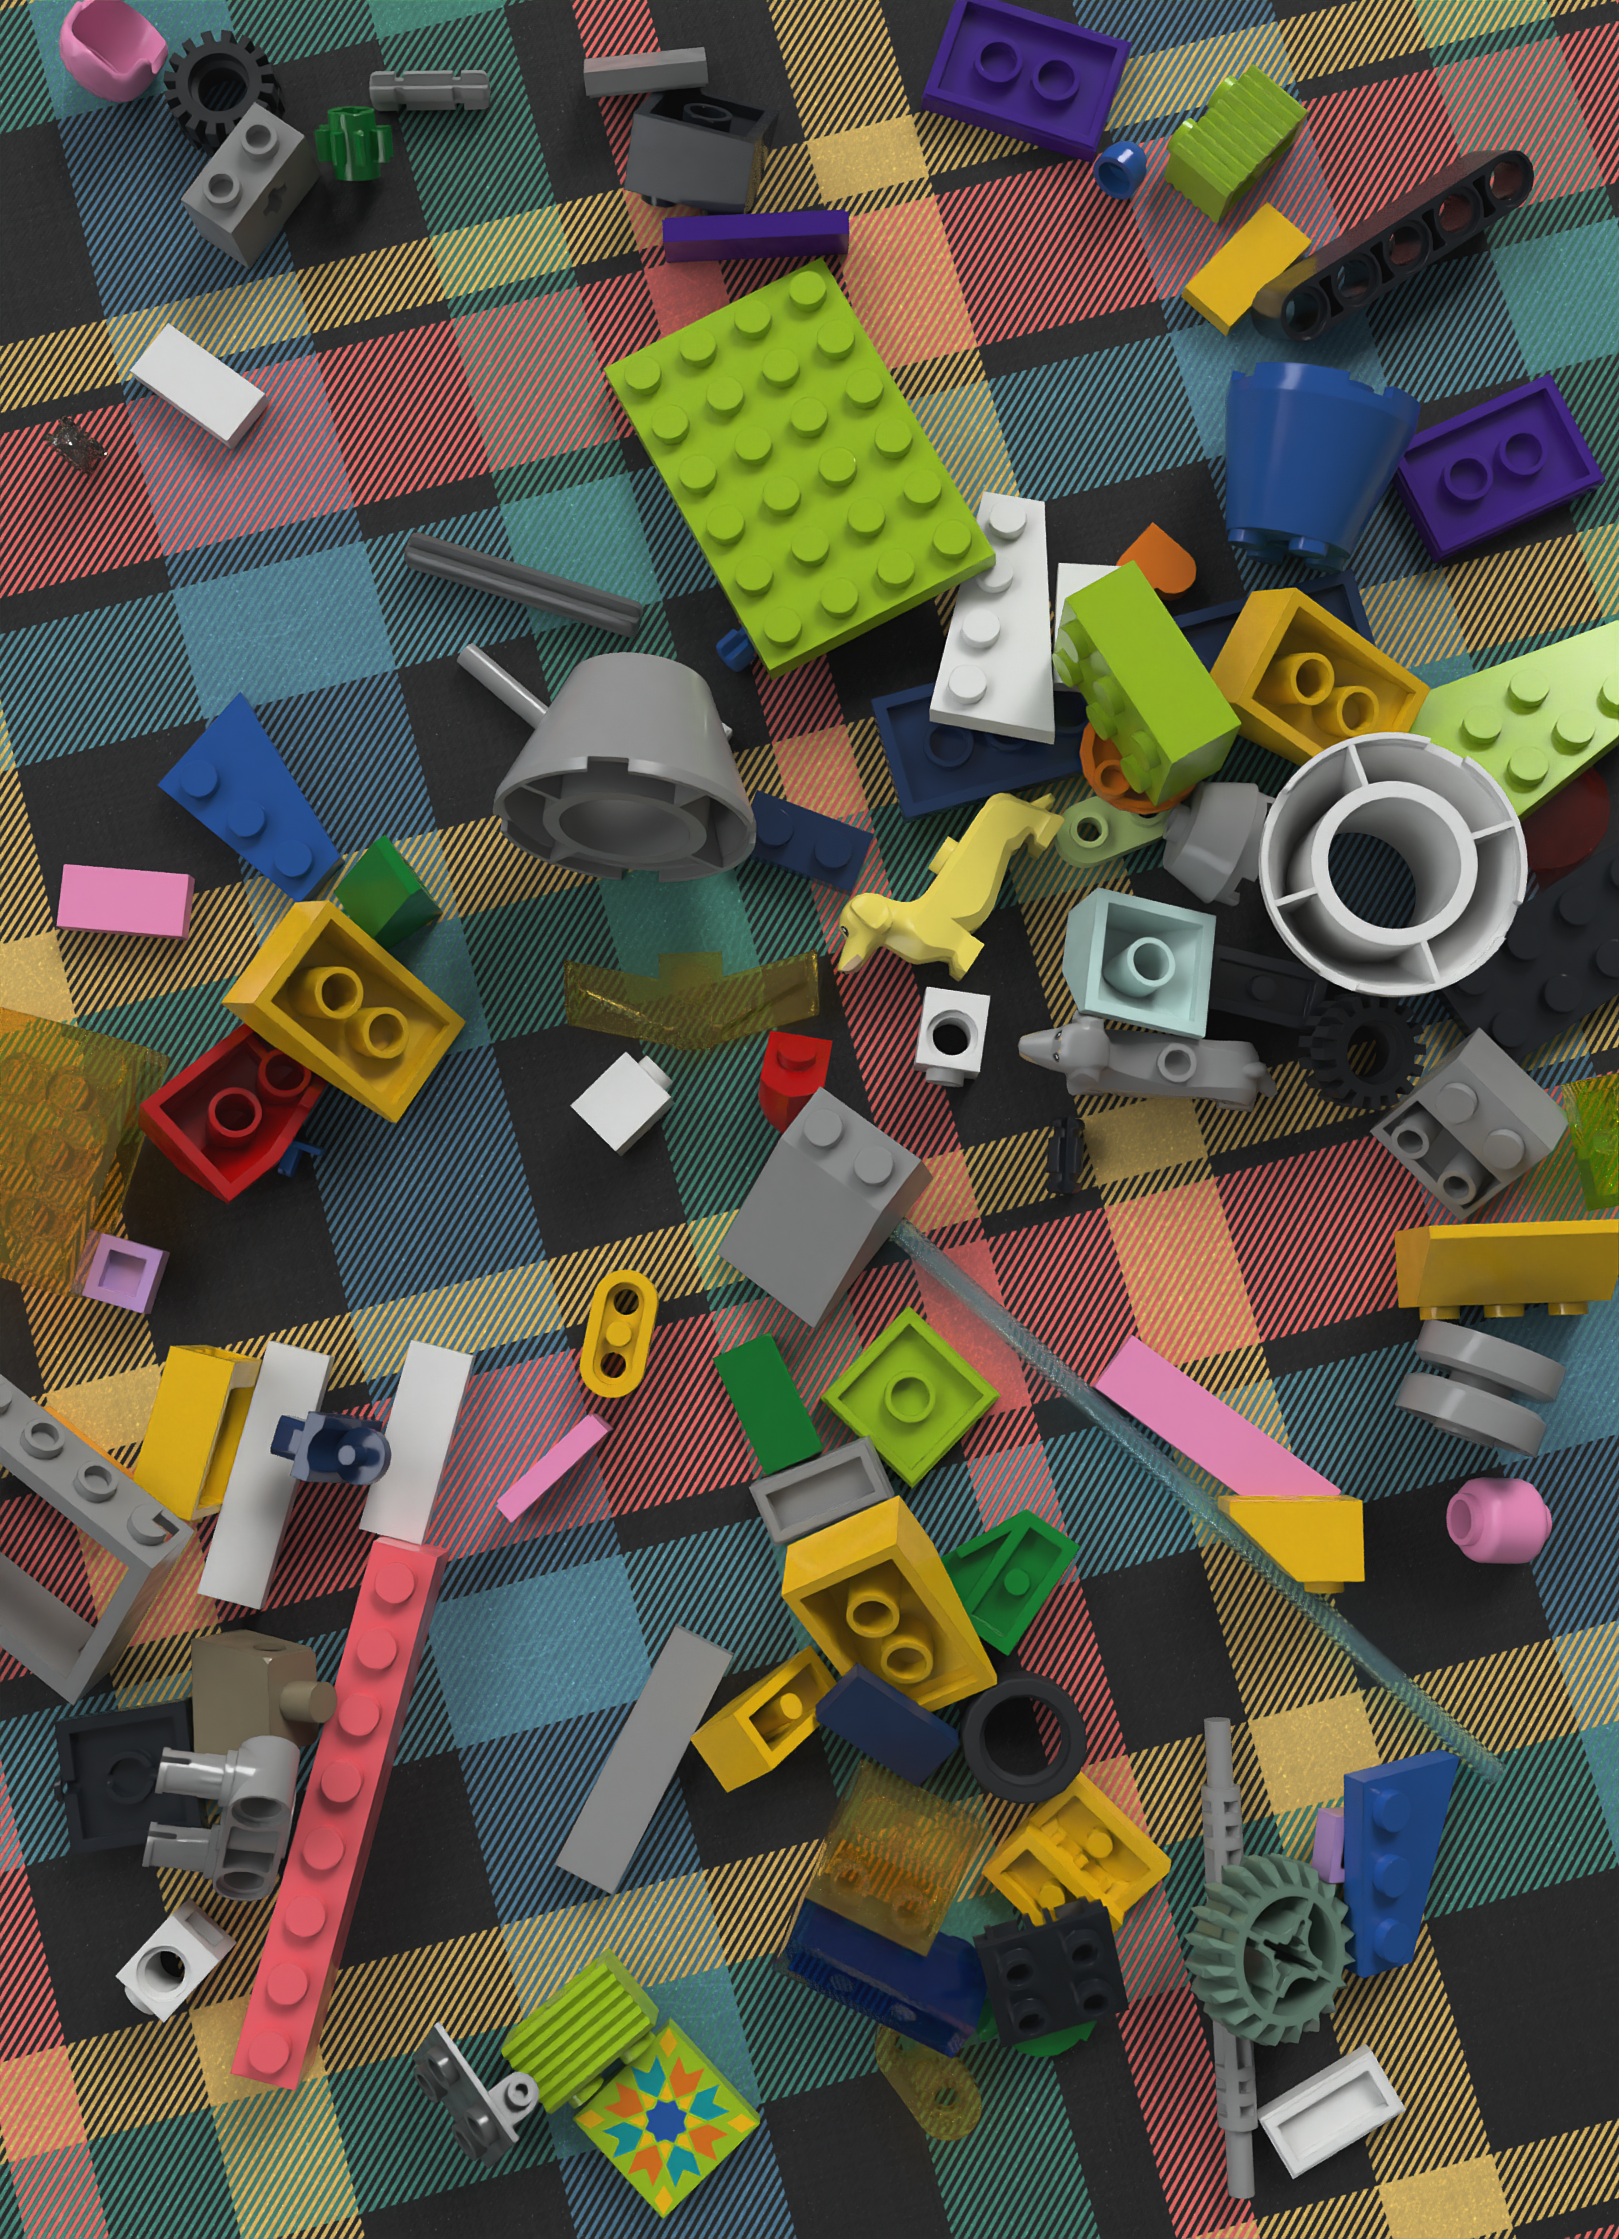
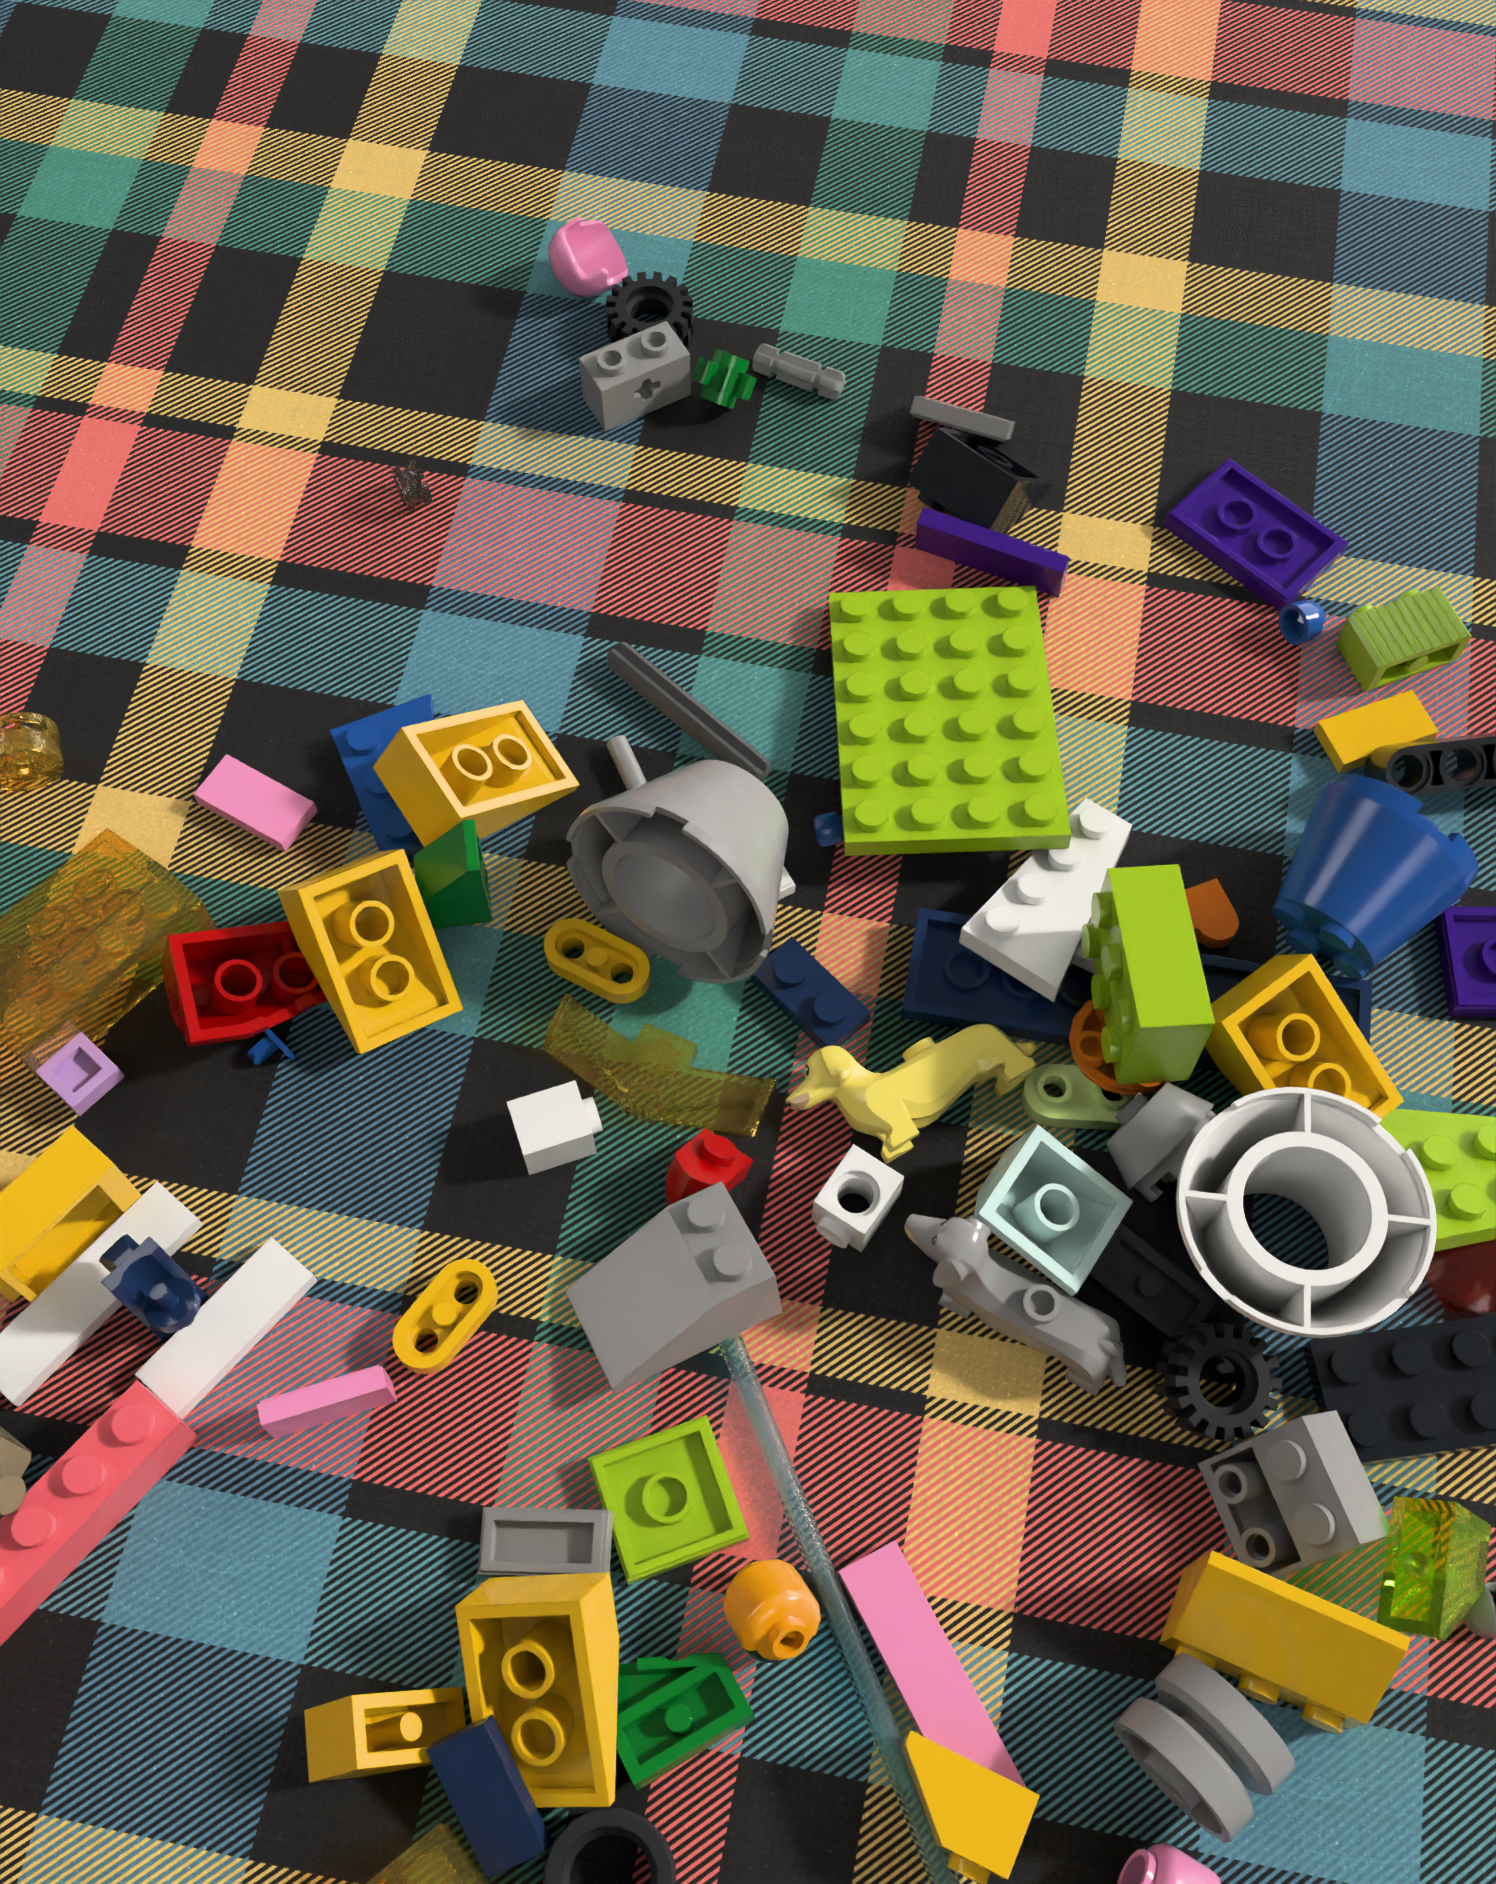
camera: 25 degrees right, 20 degrees down
(200, 386) = (524, 487): white tile -> none
(342, 767) = (475, 767): none -> yellow slope
(577, 908) = (601, 960): none -> yellow plate
(644, 1759) = (252, 1718): light grey tile -> none
(768, 1403) = (541, 1442): green slope -> none
(1055, 1453) = (771, 1610): none -> light orange head
(1065, 1155) = (908, 1351): black piece -> none

